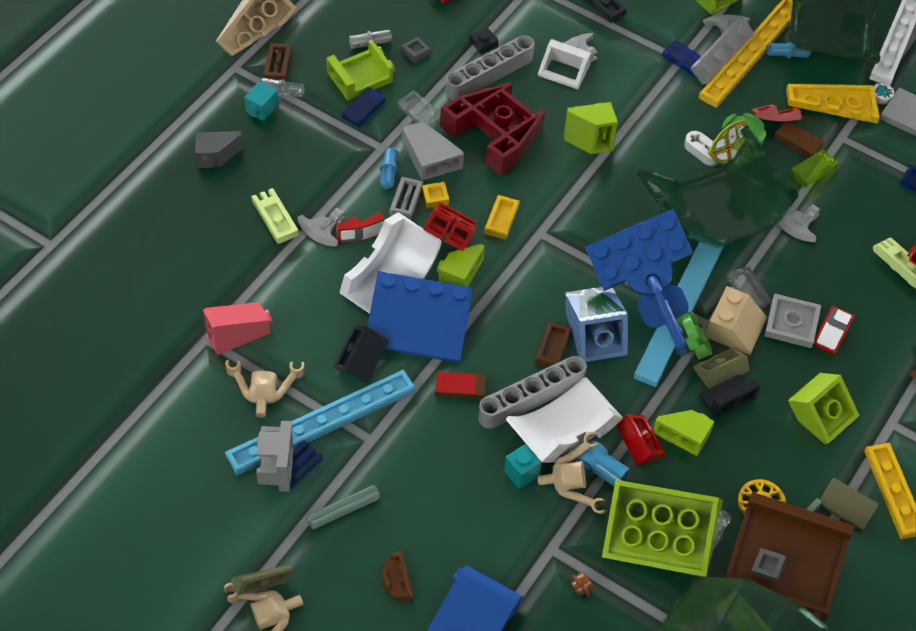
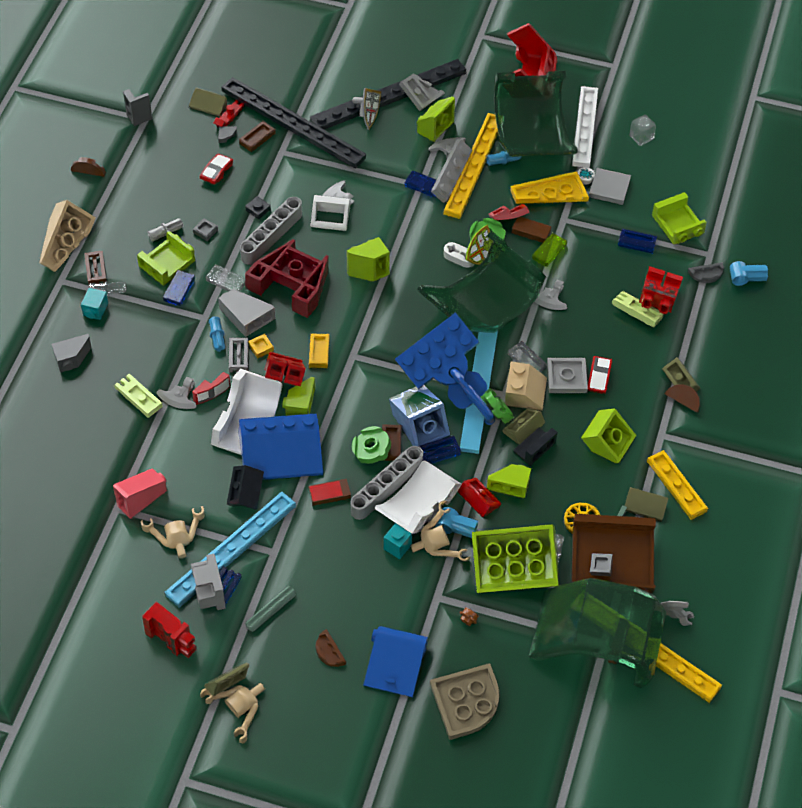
camera: 15 degrees left, 0 degrees up
(219, 508) = (168, 627): none -> red hips
(530, 353) = (376, 453): none -> bright green plate
(609, 373) = (441, 453): none -> clear blue tile

